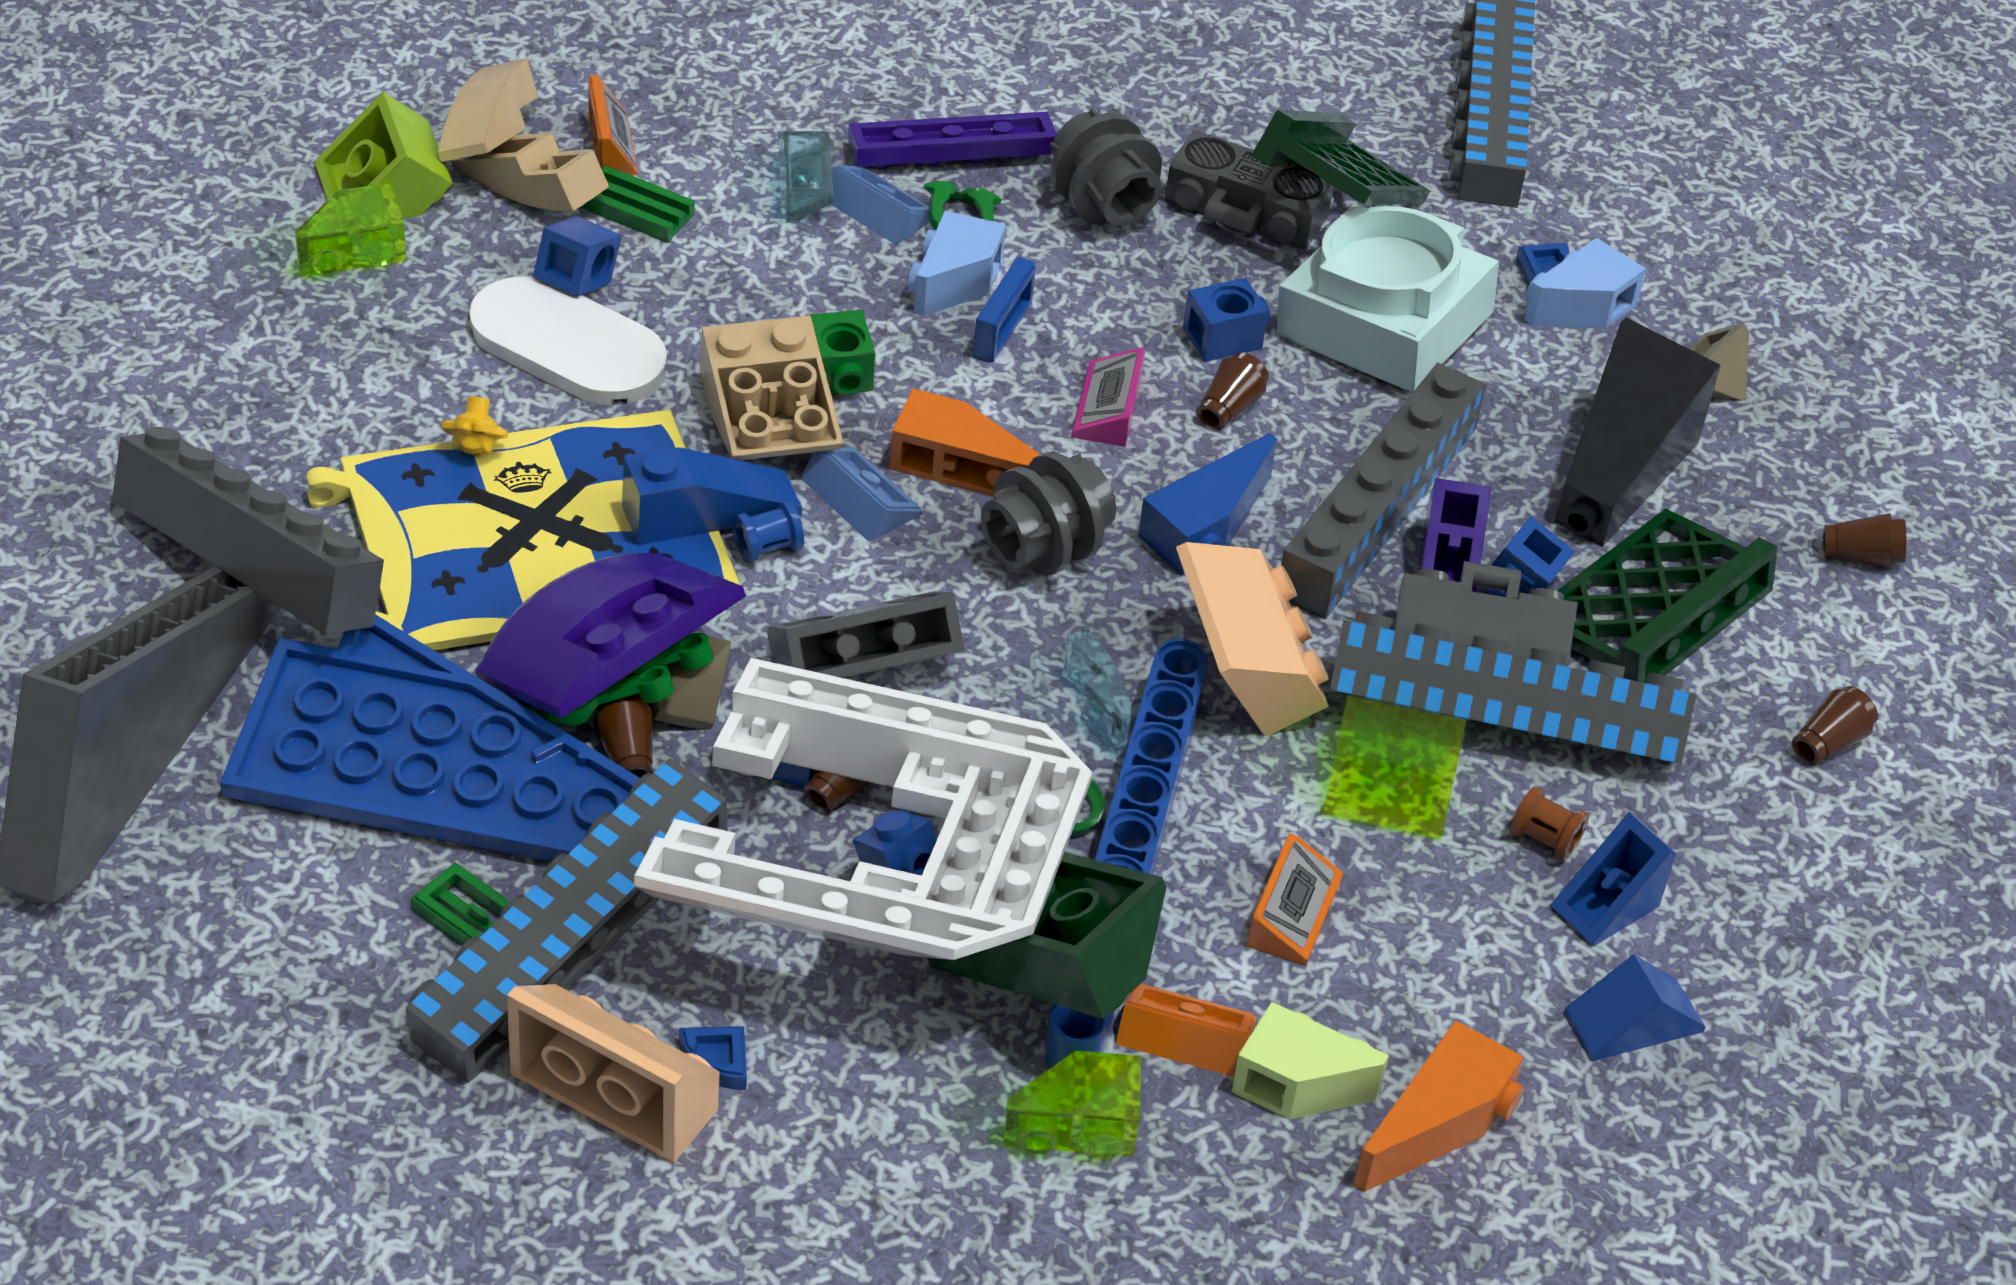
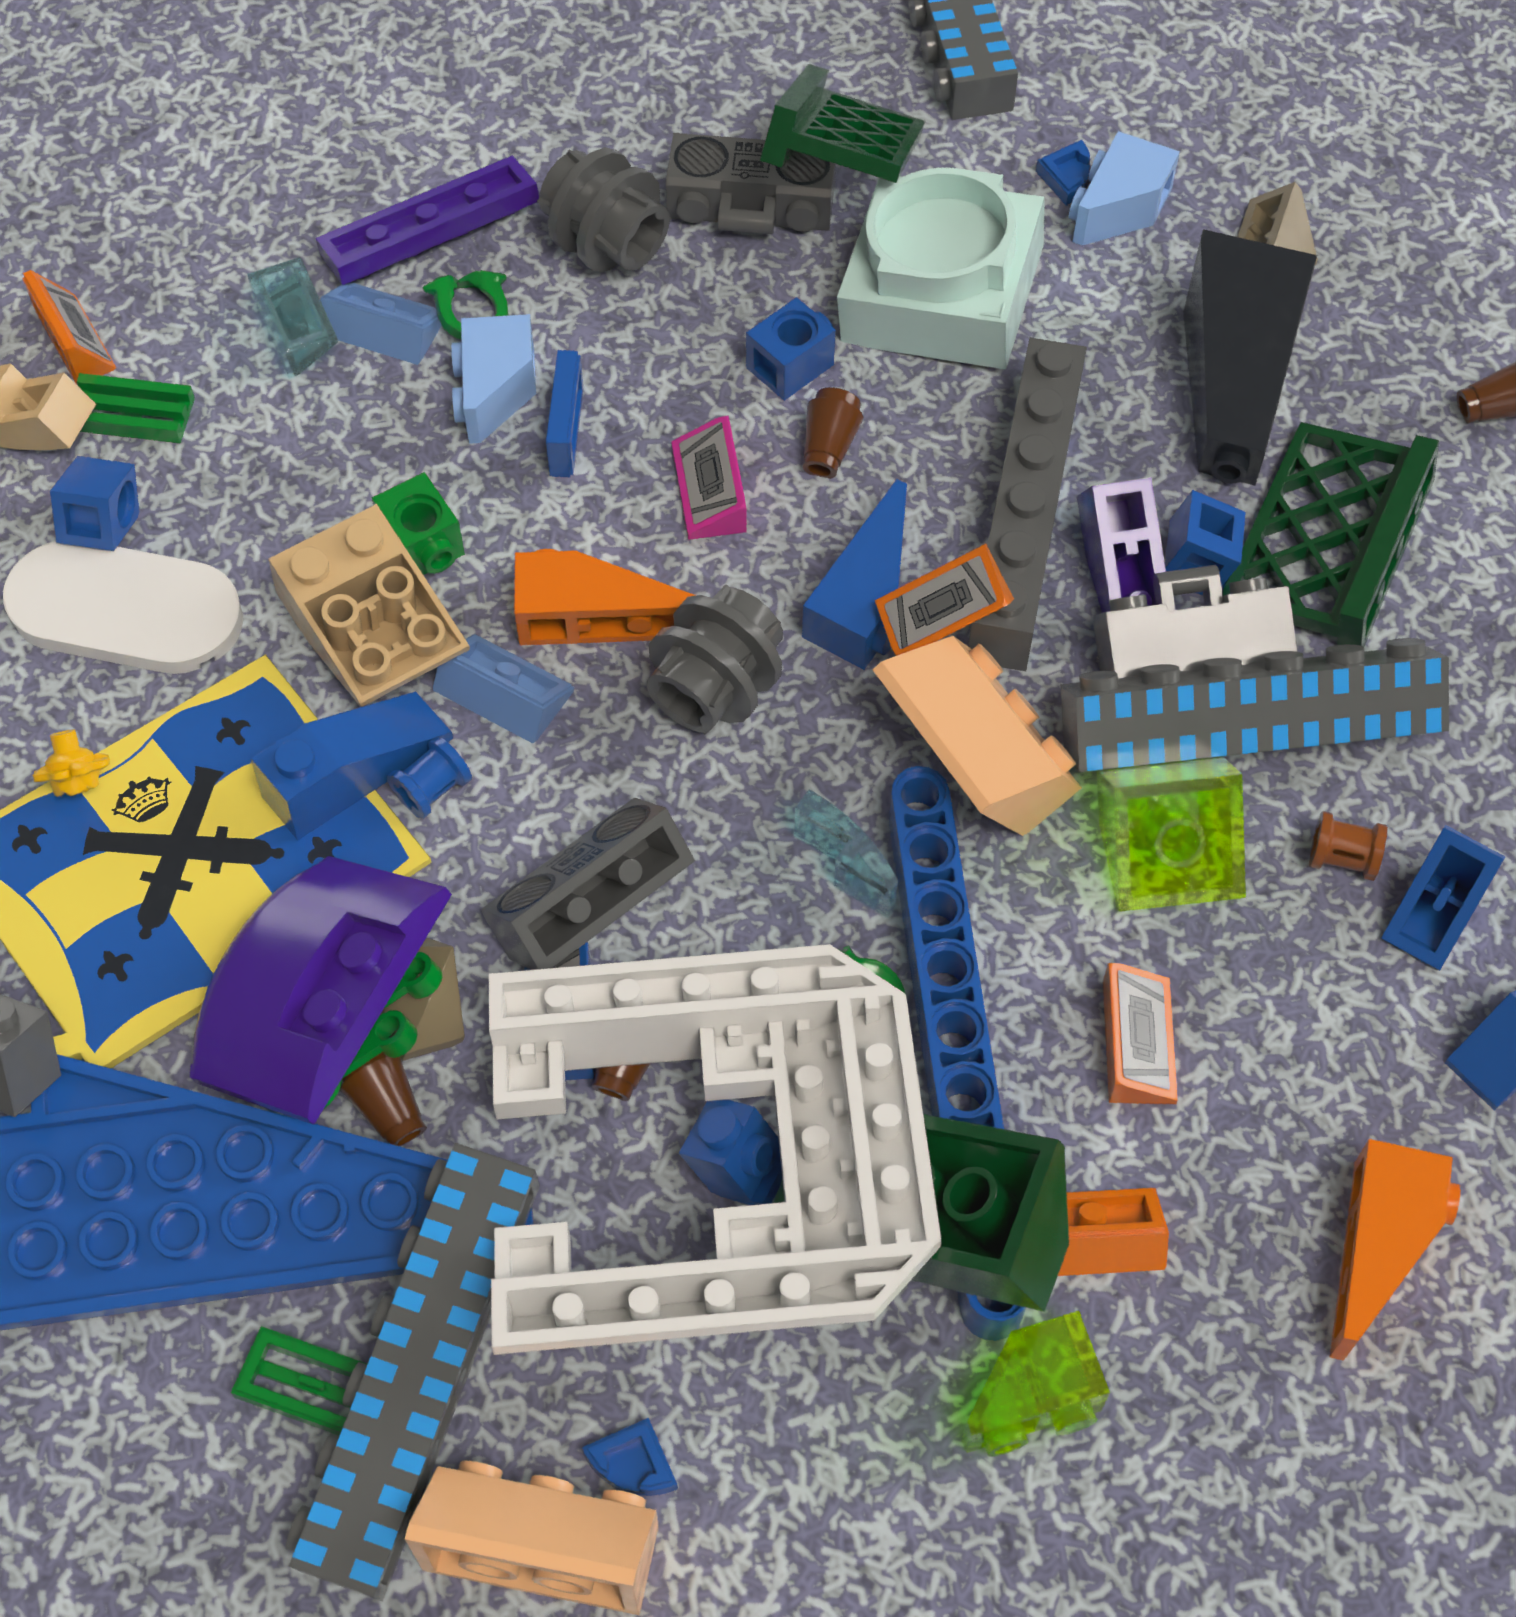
camera: 15 degrees left, 15 degrees up
(1268, 519) = (943, 601): none -> slope
(1305, 1066) = (1232, 1243): yellowish green slope -> none

